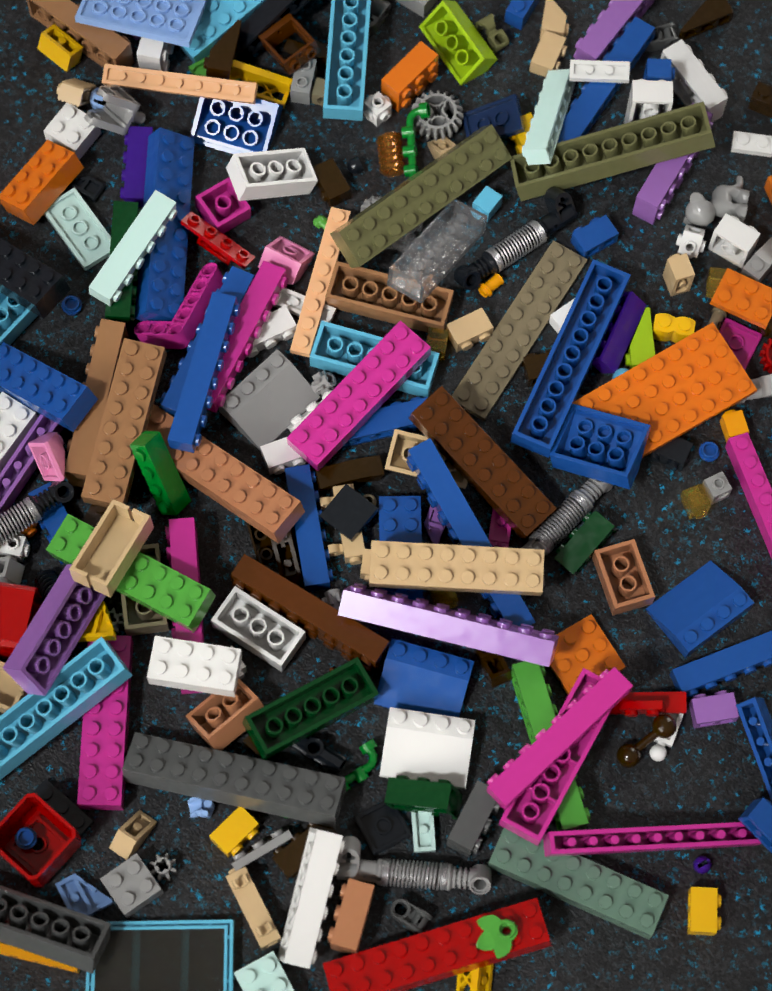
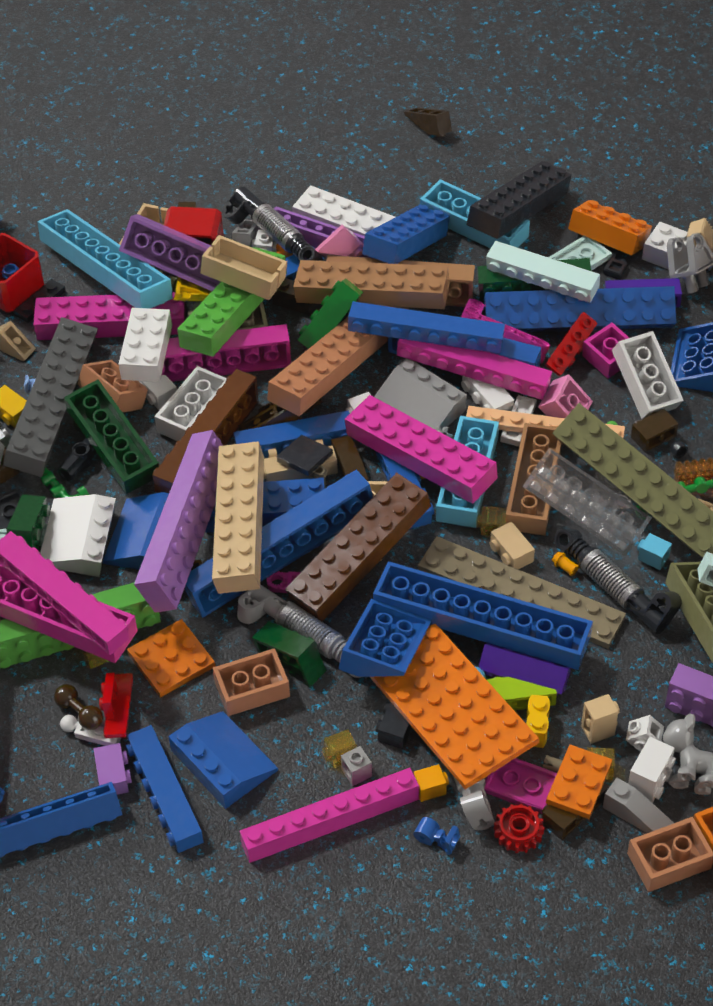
camera: 90 degrees right, 20 degrees down
(594, 237) = (635, 647): blue brick -> none
(709, 451) = (400, 761): blue plate -> none

